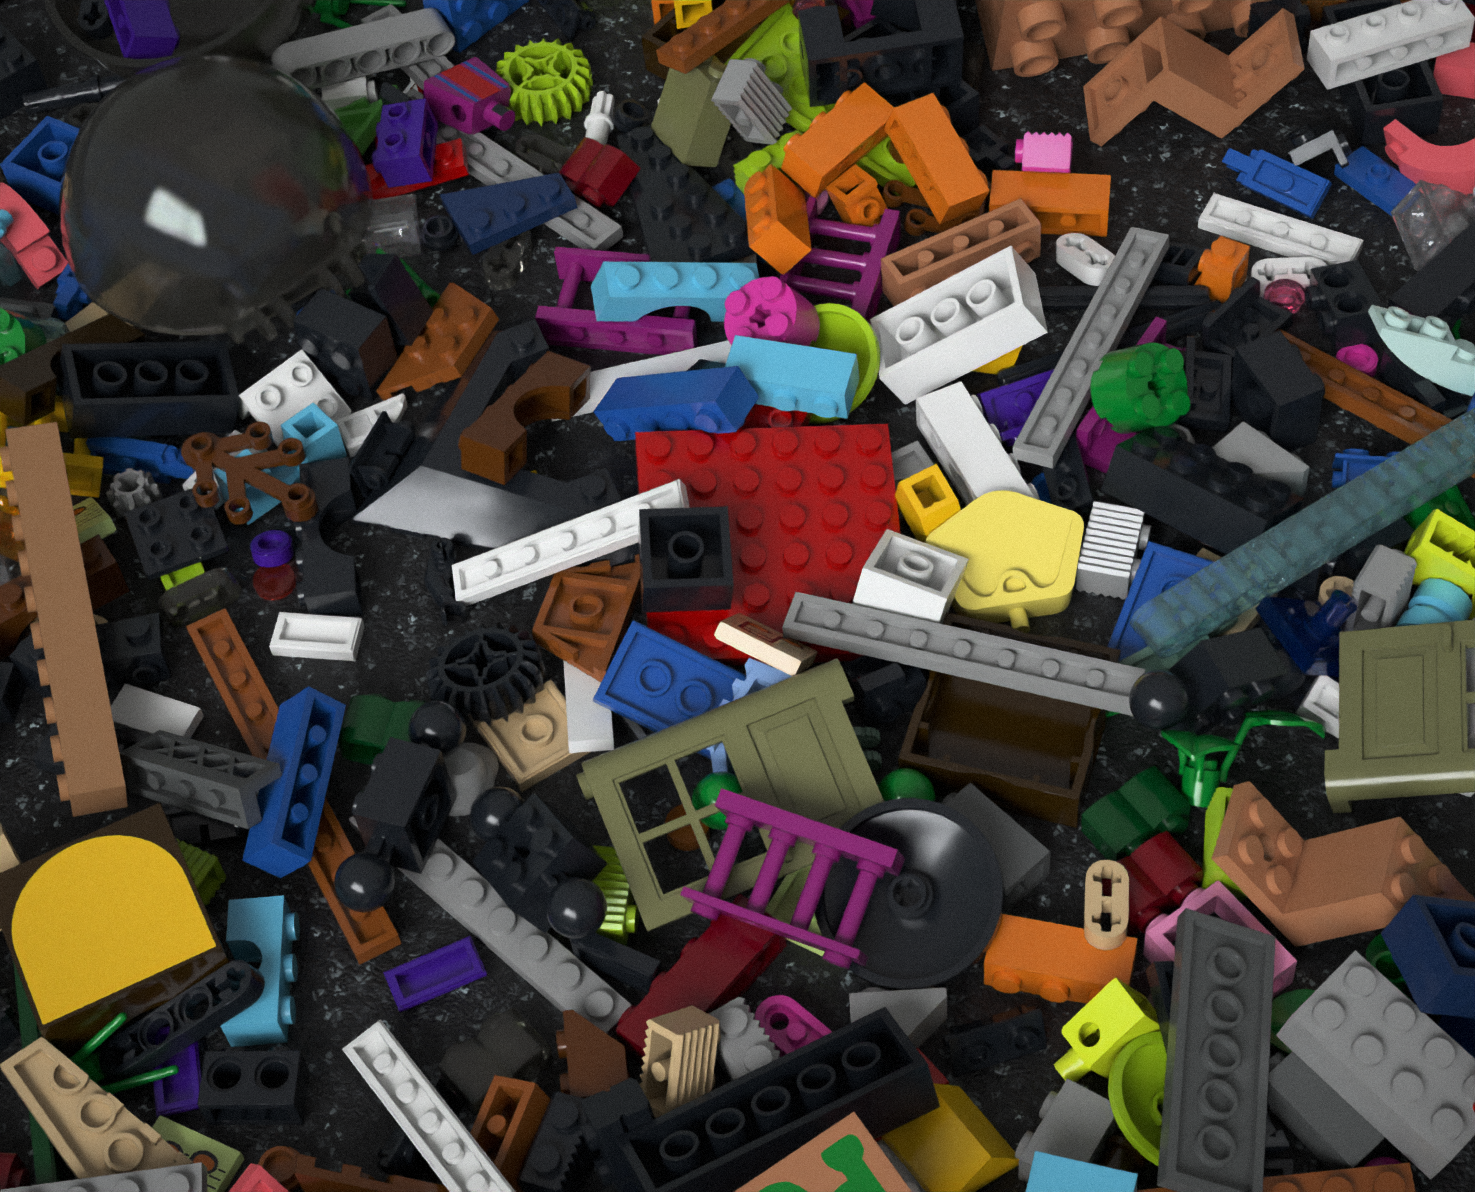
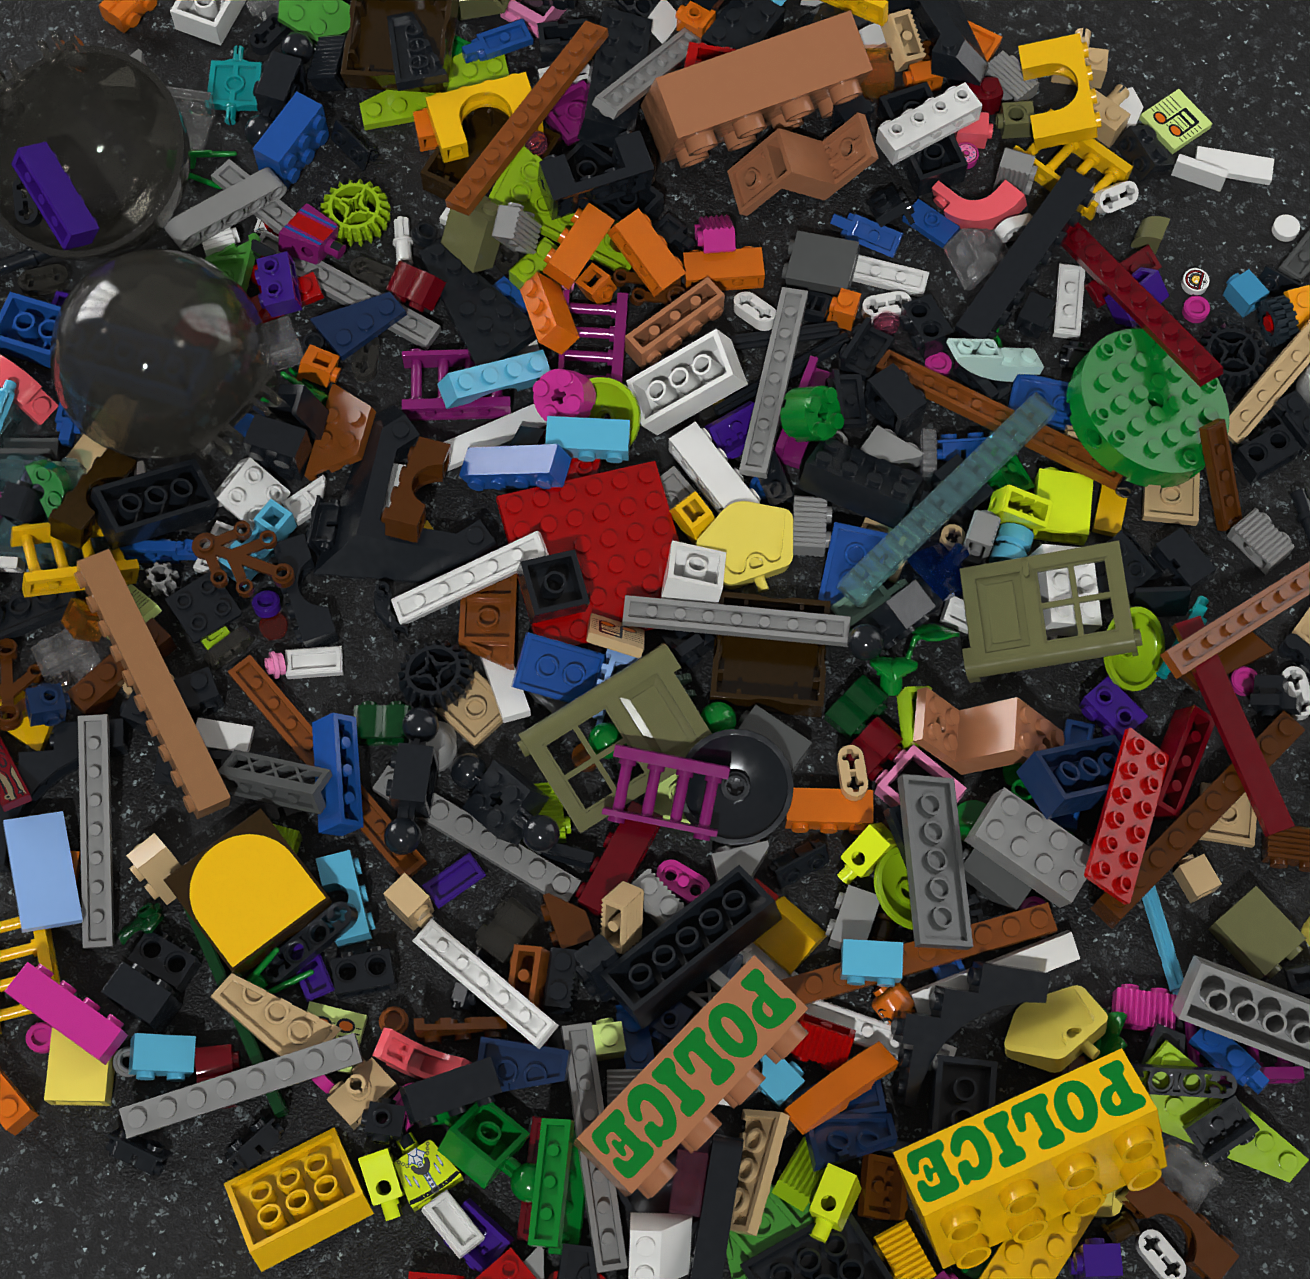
camera: 20 degrees left, 15 degrees up
(258, 628) = (275, 664): none -> bright pink plate
(350, 985) = (409, 902): none -> tan brick
(436, 256) = (319, 366): none -> orange brick
(1199, 204) = (821, 263): none -> dark grey brick
(1319, 470) = (928, 446): none -> clear beam
(1452, 103) = (970, 153): none -> tile

